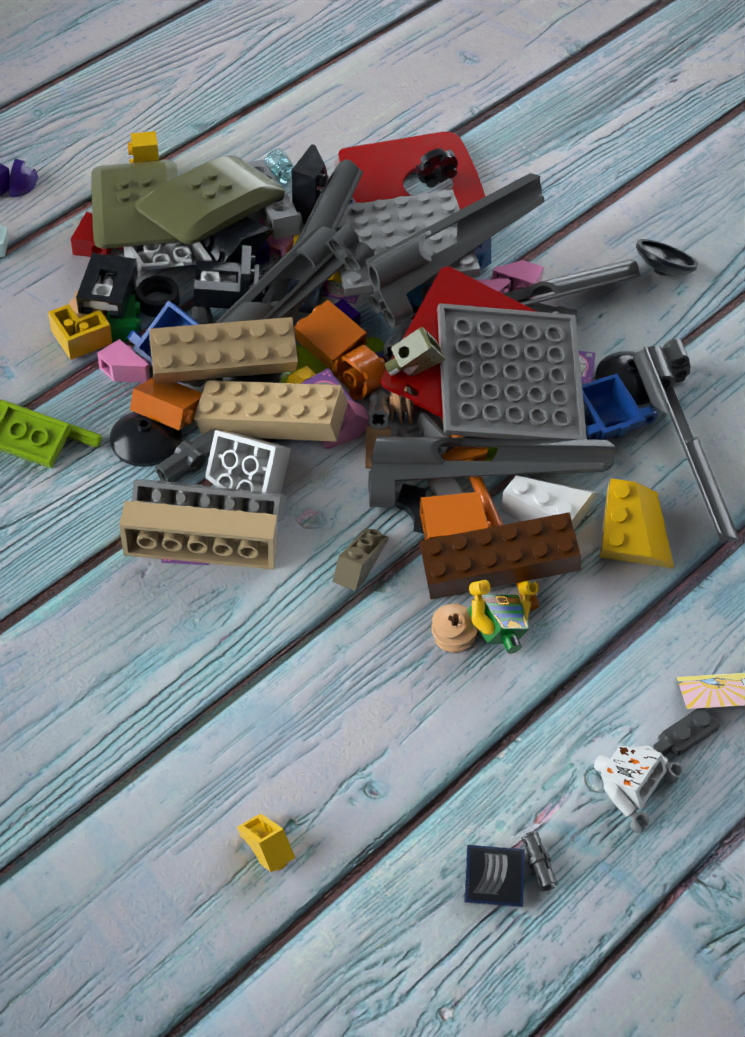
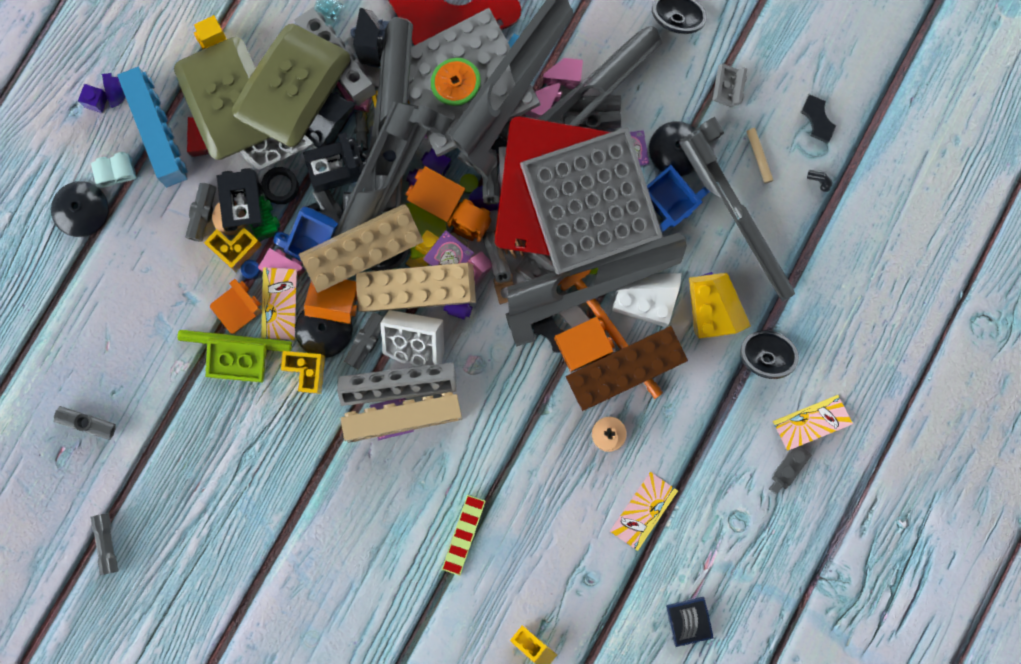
camera: 20 degrees left, 30 degrees up
(45, 212) = (153, 126): none -> dark azure brick
(56, 388) = (236, 307): none -> orange bracket
(57, 296) = (200, 212): none -> dark grey piece
(88, 362) = (250, 269): none -> blue tile
(105, 394) = (278, 303): none -> sticker
(107, 459) = (310, 369): none -> yellow brick
(224, 689) = (463, 535): none -> tile
(314, 453) = (459, 310): none -> dark purple brick
(359, 558) = (523, 393): dark tan slope -> none
(389, 229) = (460, 92): none -> orange wheel
(415, 354) = (518, 221): olive torso -> none
(472, 731) = (643, 511): none -> sticker
(499, 616) = (642, 418): torso -> none
(539, 861) = (716, 601): dark grey pin -> none
(633, 776) = (763, 520): white torso -> none
(689, 594) = (769, 354): none -> black dish
(708, 333) = (729, 85): none -> light grey bracket
(729, 406) = (759, 155): none -> tan piece

